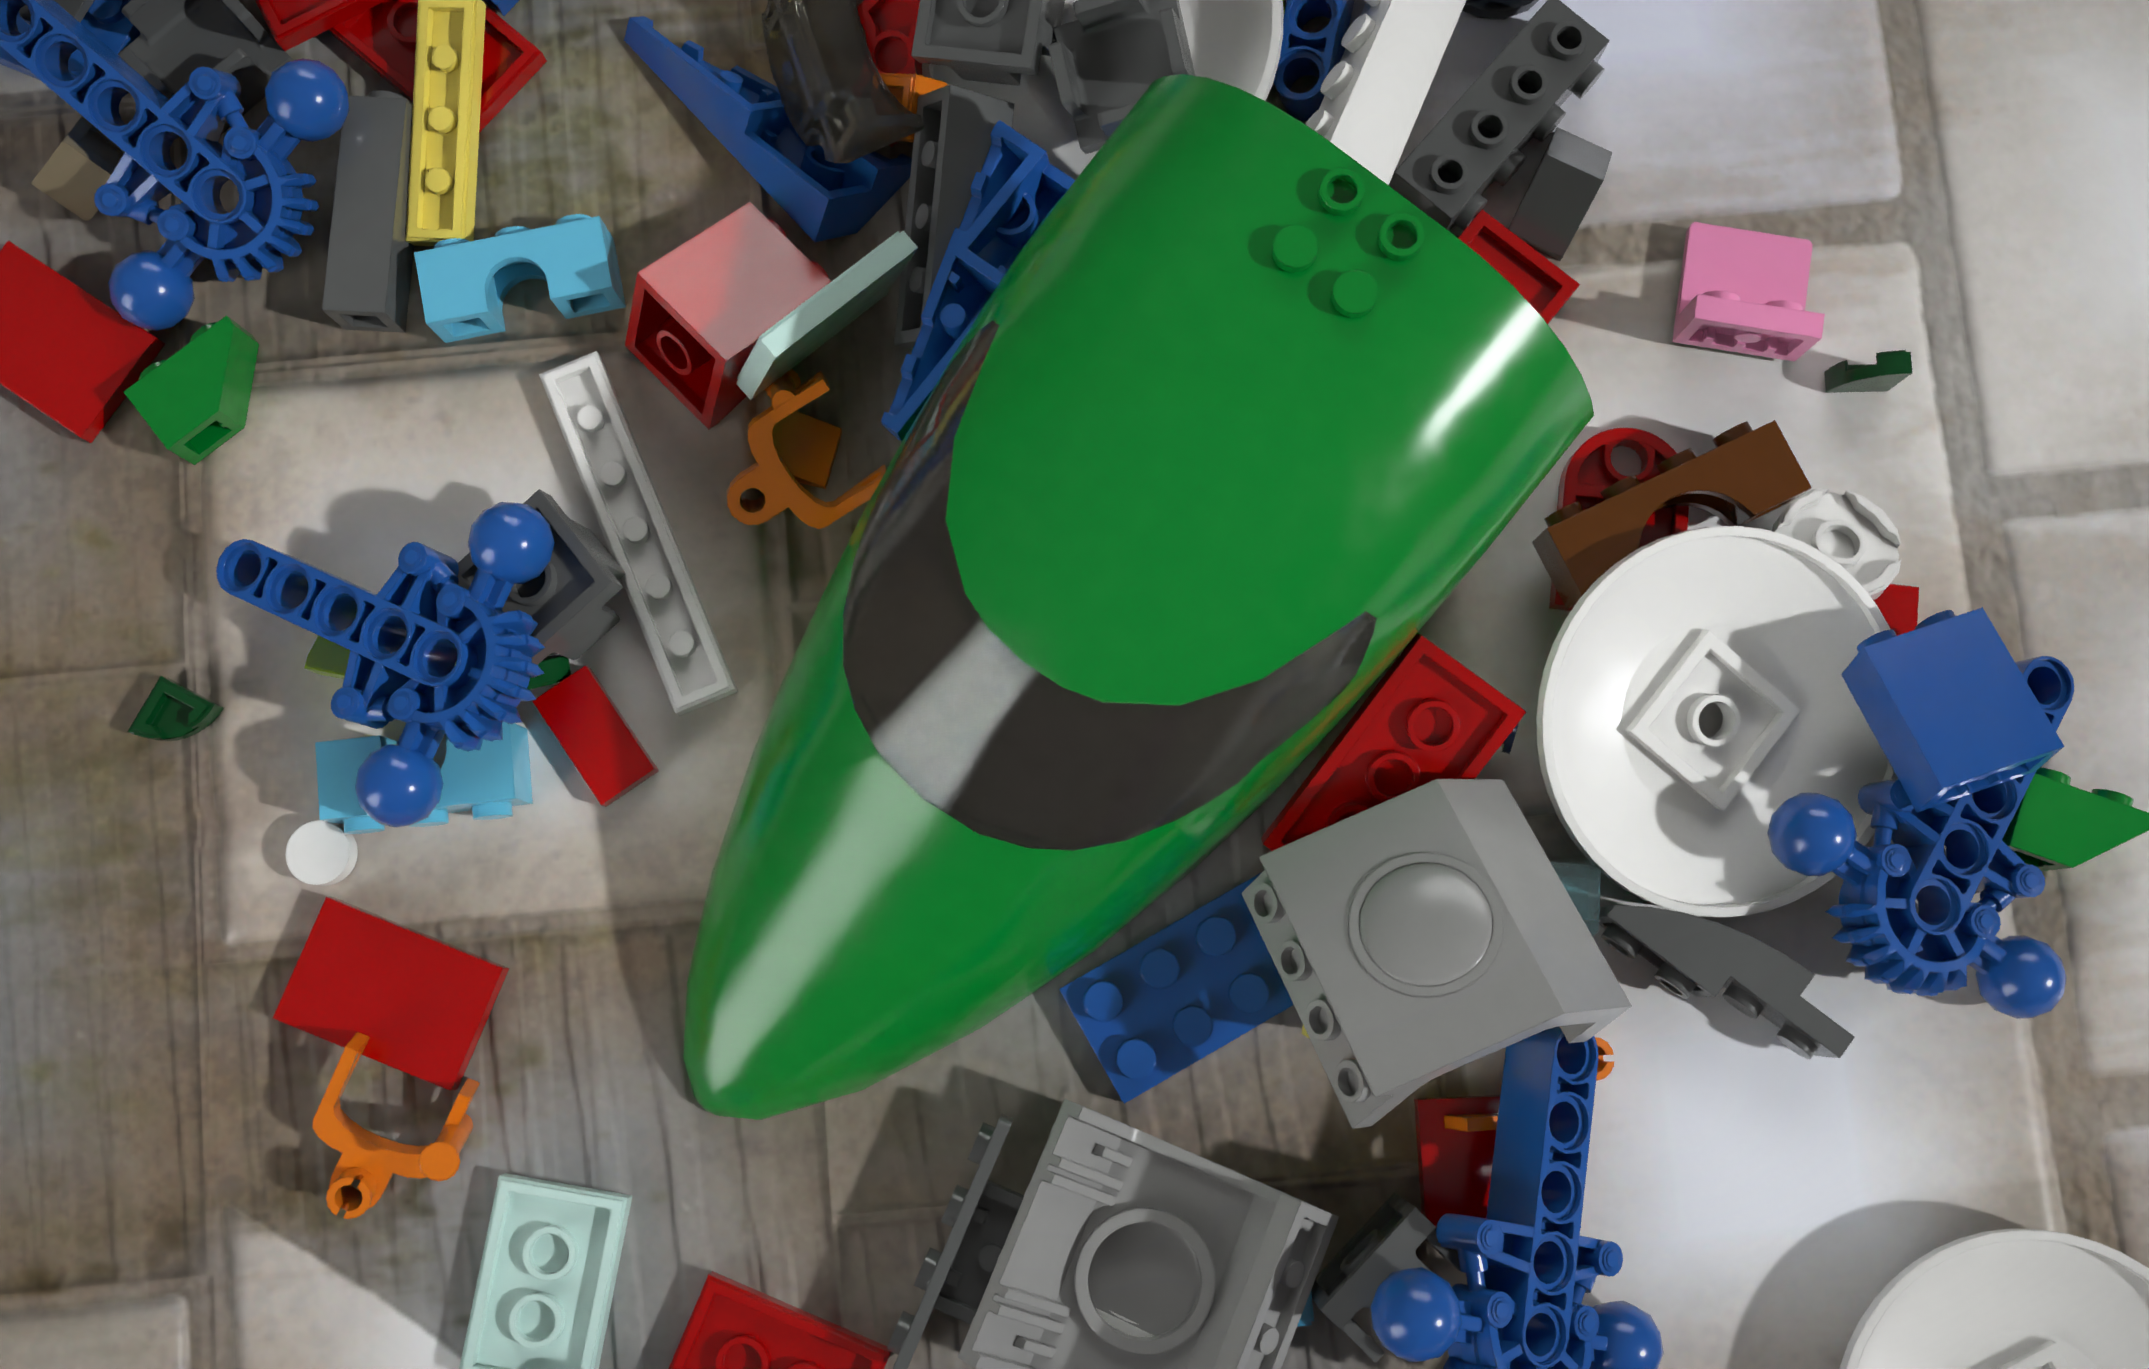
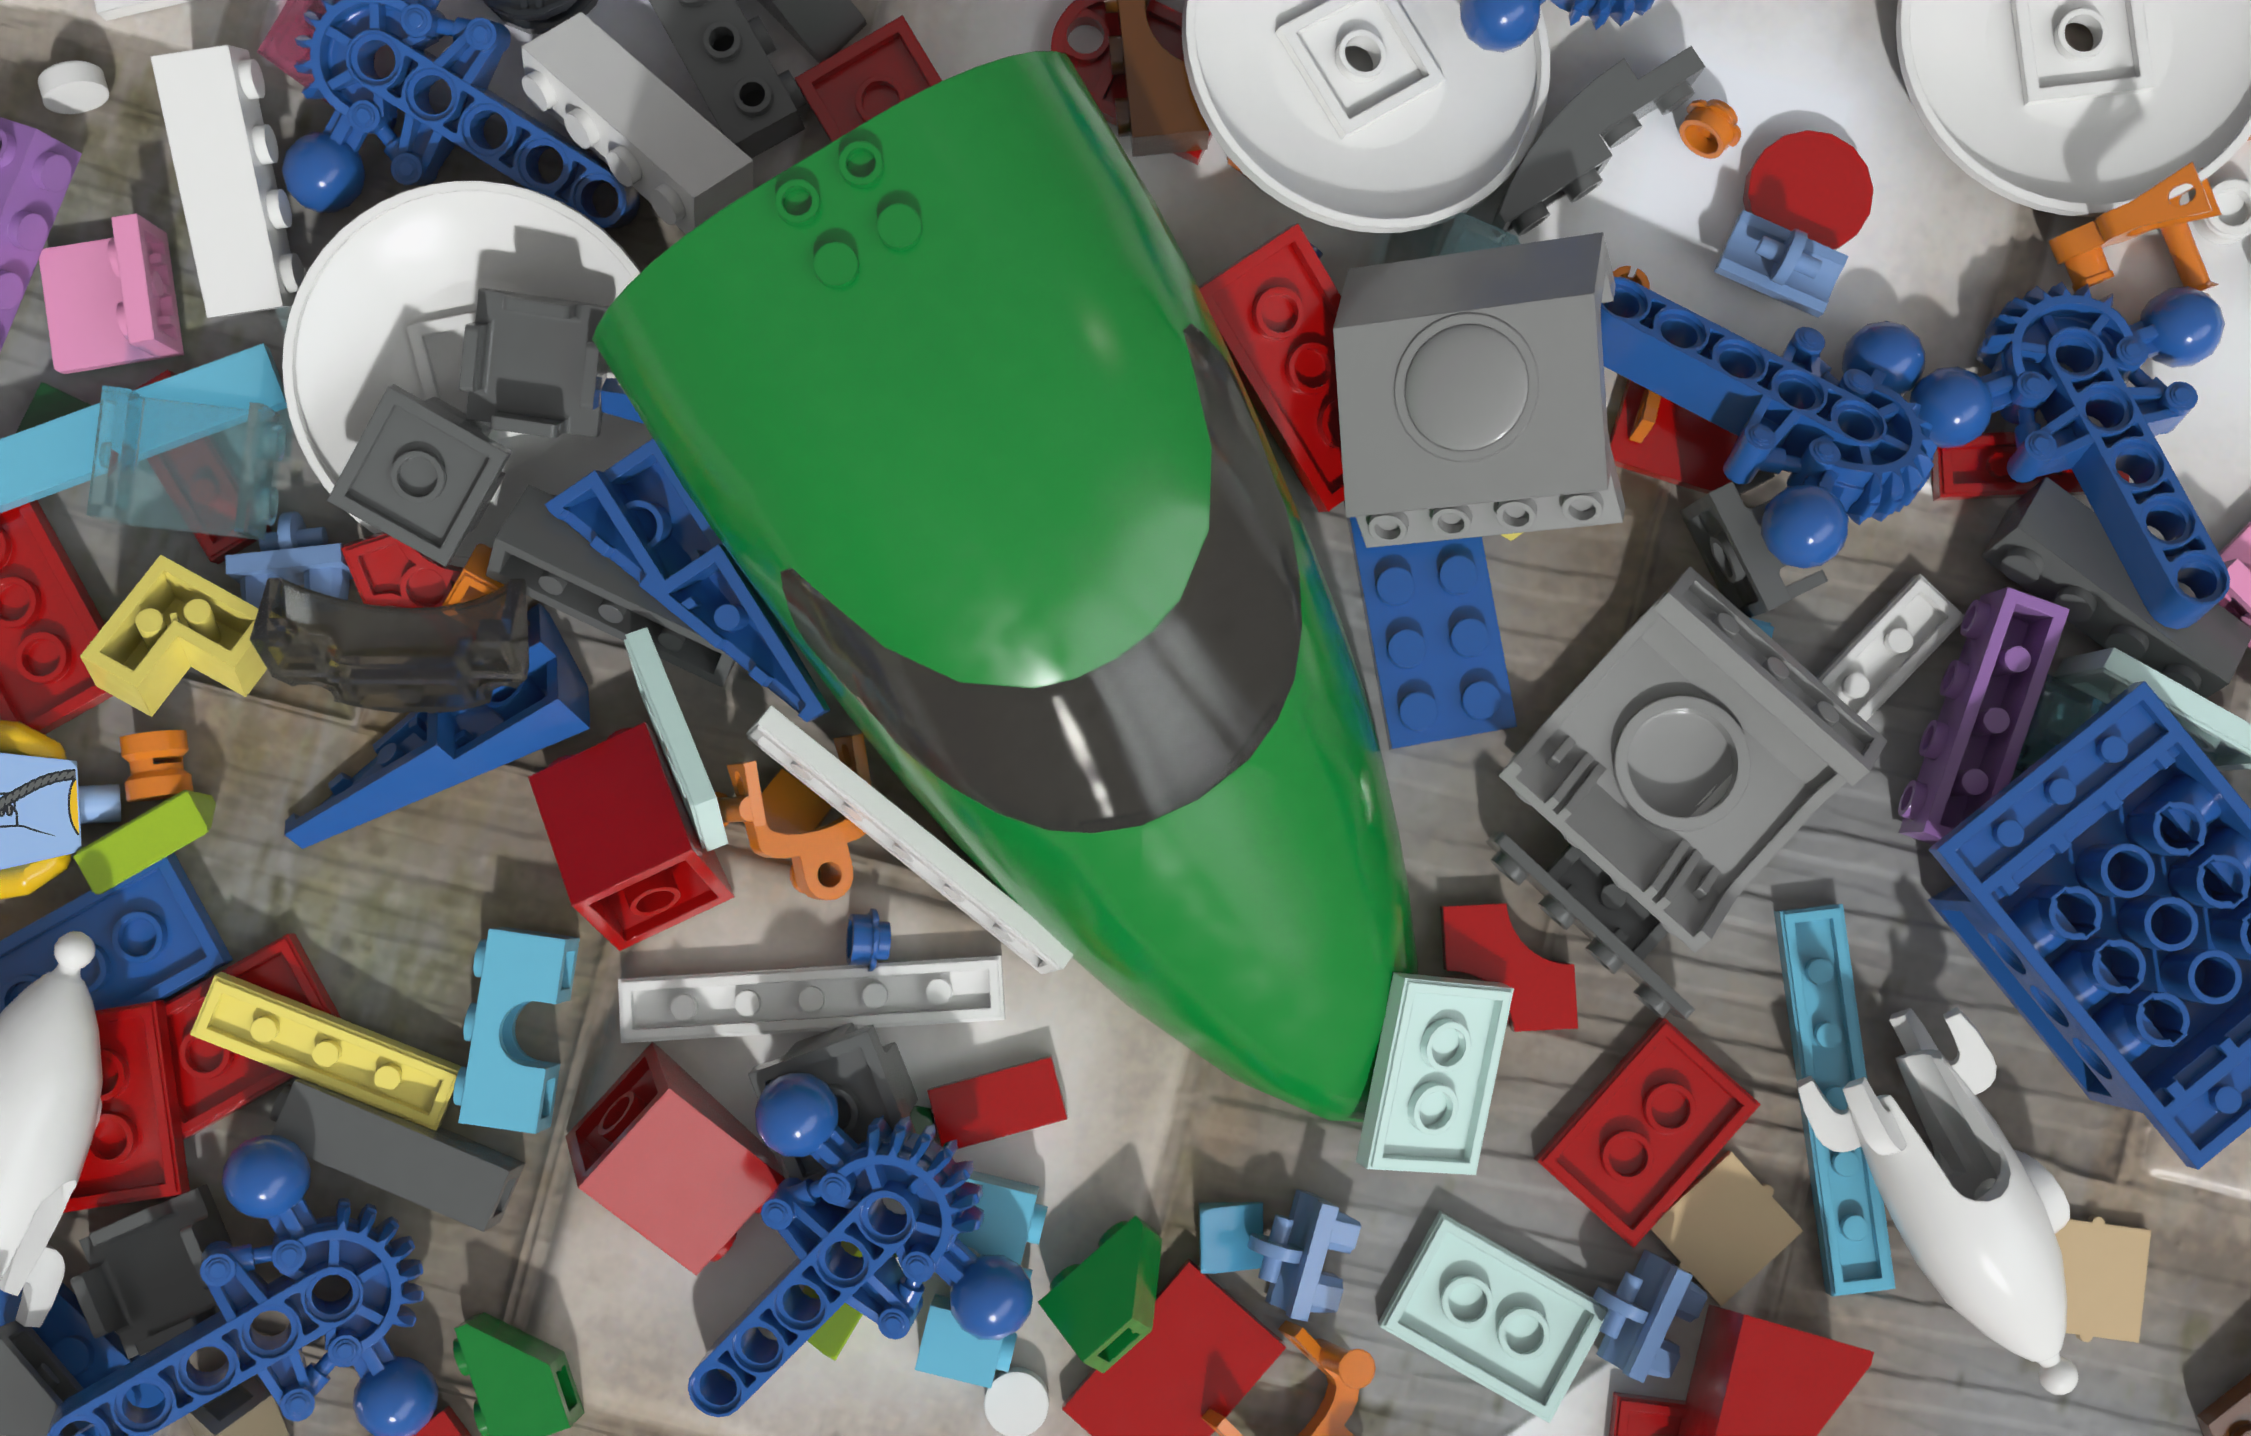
camera: 70 degrees left, 5 degrees up
(439, 453) = (672, 1161): none -> slope
(442, 902) = (1110, 1296): none -> green slope
(540, 999) = (1225, 1236): none -> dark azure slope
(541, 1067) = (1297, 1255): none -> medium blue hips
(707, 561) = (867, 939): none -> blue plate
(755, 1140) = (1434, 1074): none -> light aqua tile
(806, 560) = (907, 841): none -> white tile
(876, 1210) = (1484, 944): none -> red tile
(1675, 1205) = (1781, 263): none -> medium blue hips
(1756, 1210) = (1812, 186): none -> red tile
(1782, 1087) = (1710, 128): none -> orange plate

